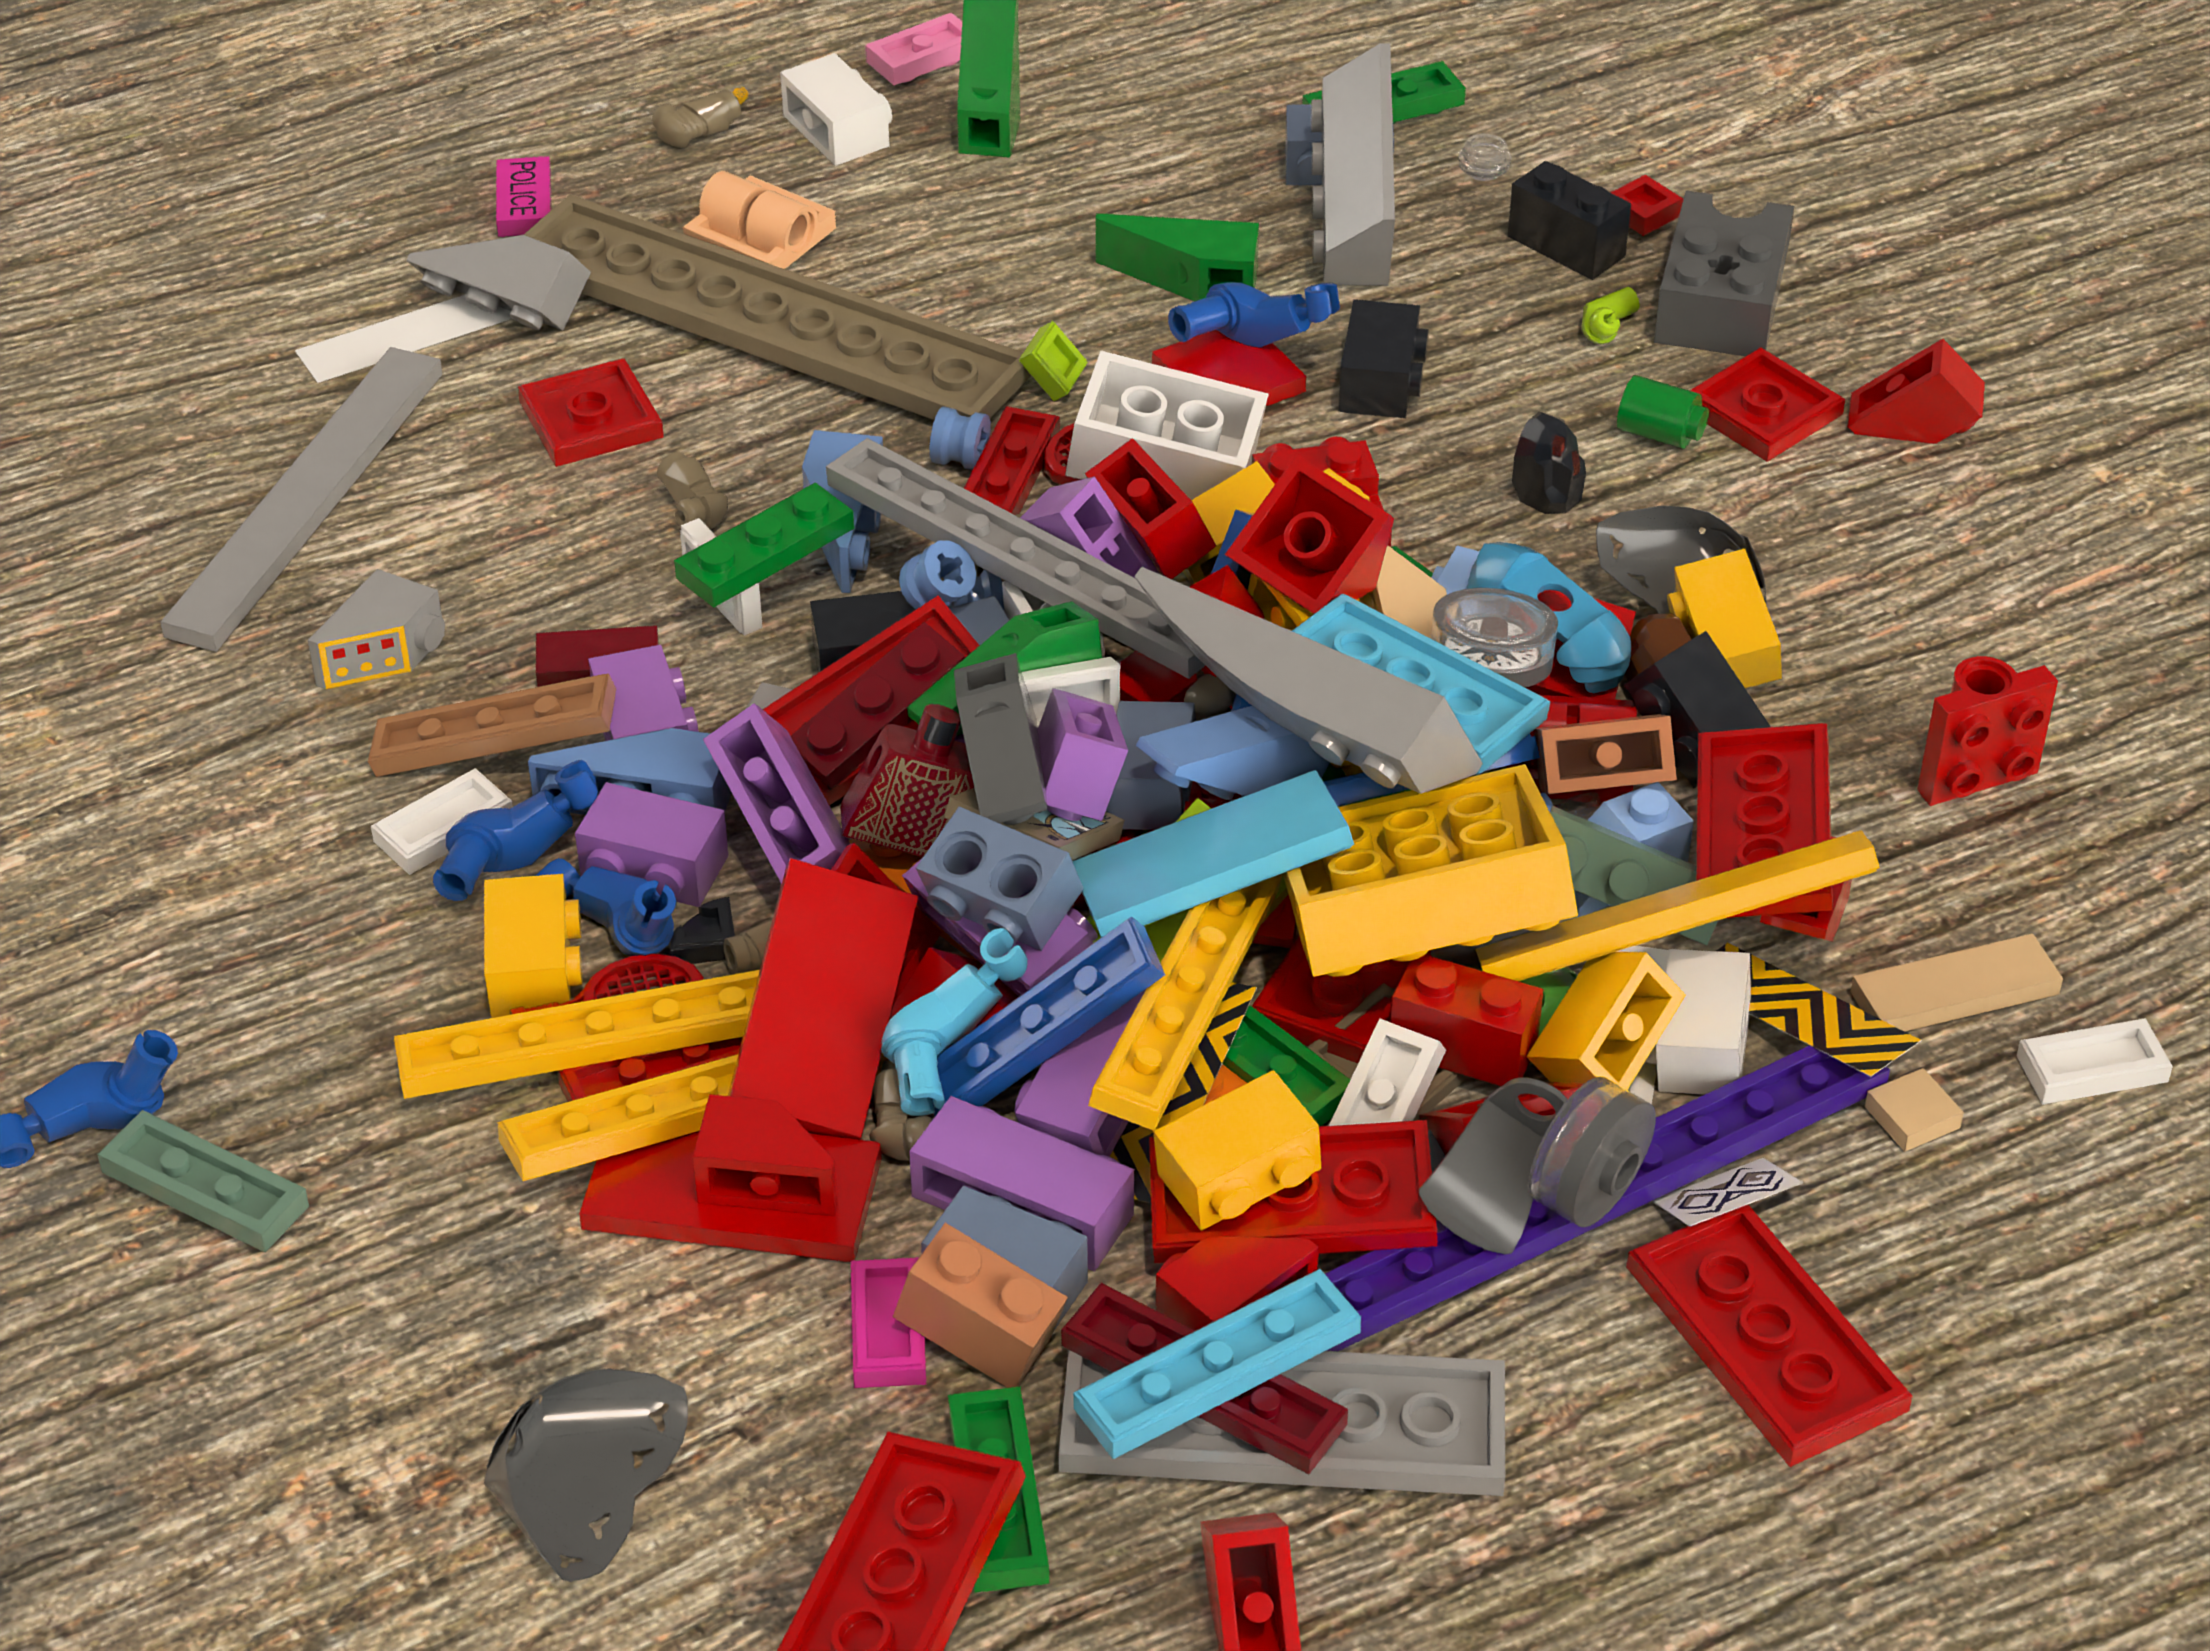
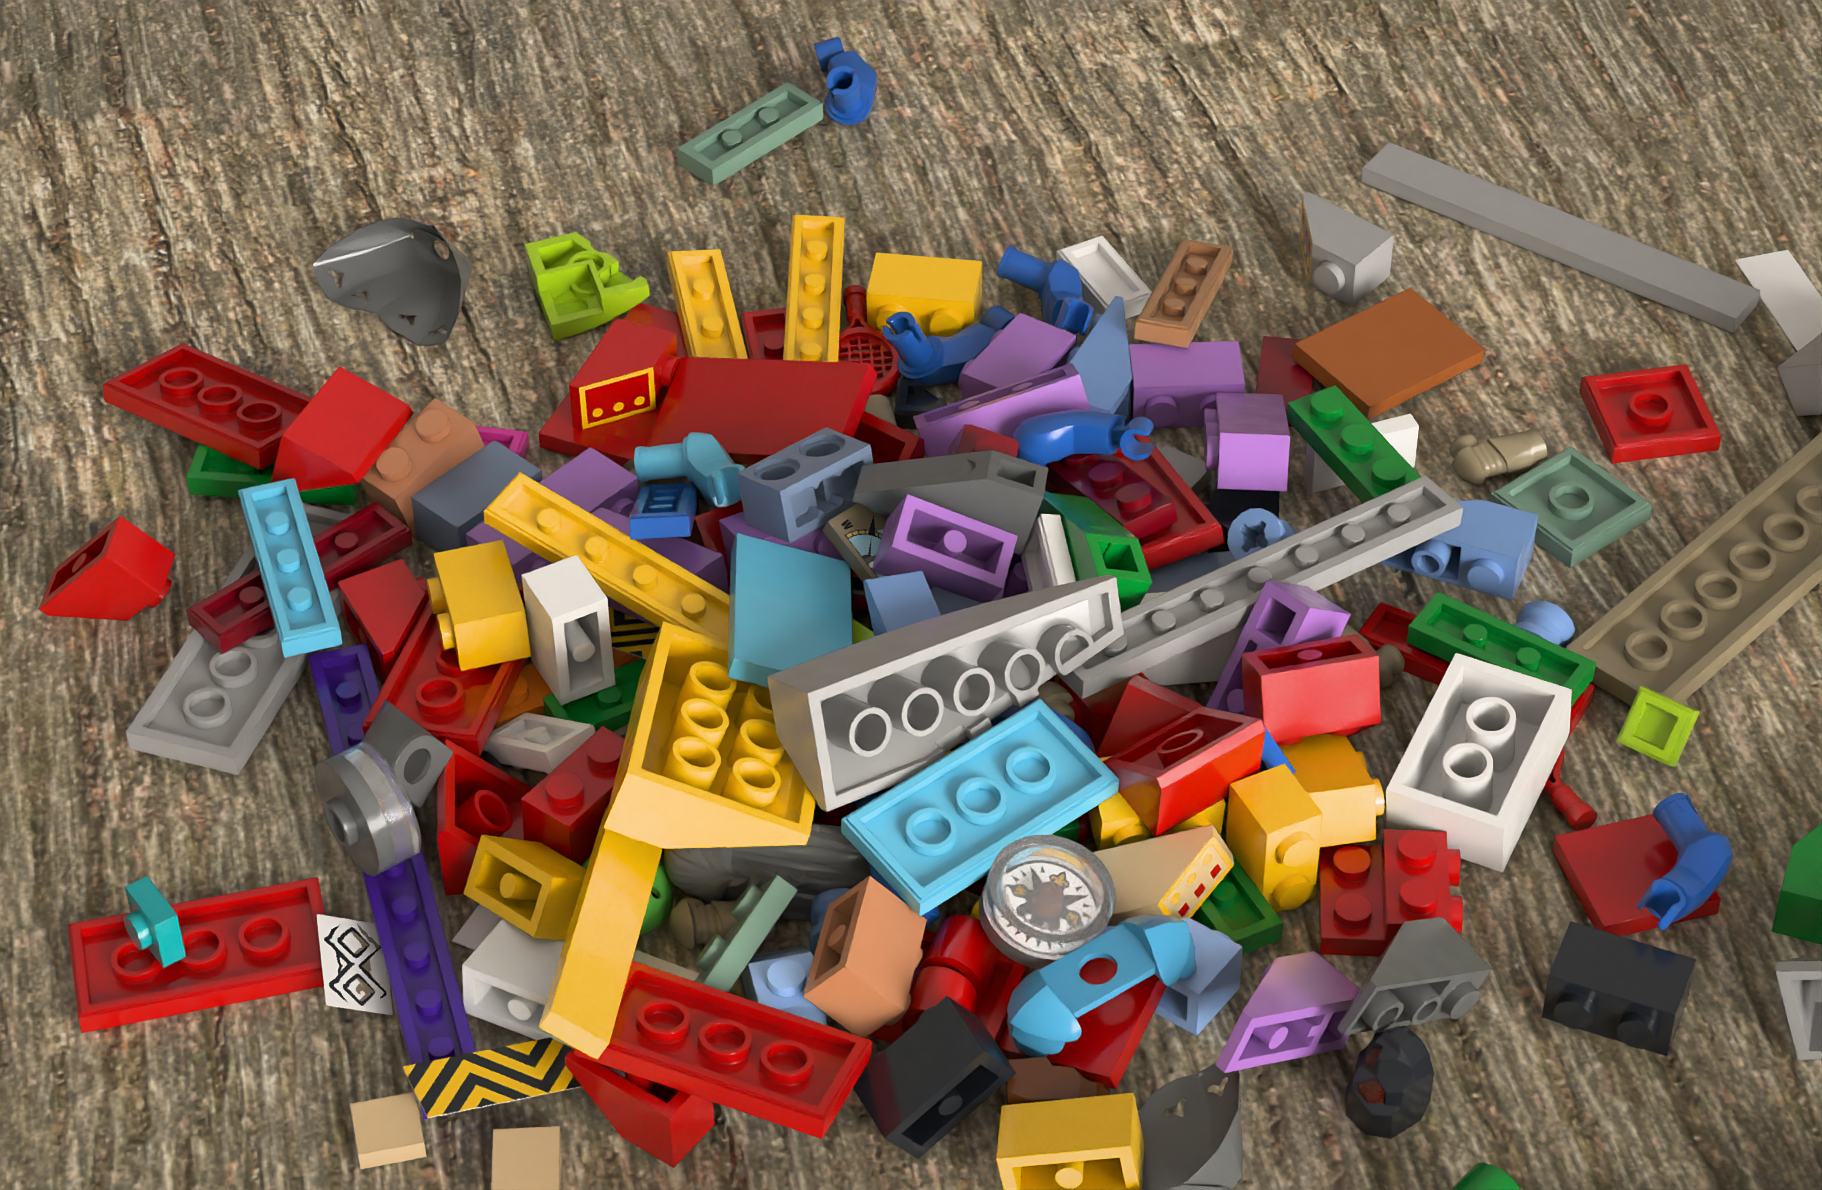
camera: 105 degrees right, 0 degrees up
(550, 578) = (1388, 353): none -> dark orange tile
(560, 1278) = (579, 285): none -> lime slope
(746, 449) = (1576, 505): none -> sand green tile
(763, 620) = (1247, 441): none -> medium lavender brick
(815, 725) = (1080, 431): none -> blue arm
(988, 1376) = (339, 433): none -> red slope
(1008, 441) = (1454, 627): none -> green plate
(1260, 1031) = (569, 629): none -> white brick
(1459, 442) = (1418, 979): none -> dark grey slope
(1533, 504) = (1290, 1014): none -> medium lavender slope
(1788, 1333) = (153, 922): none -> teal plate

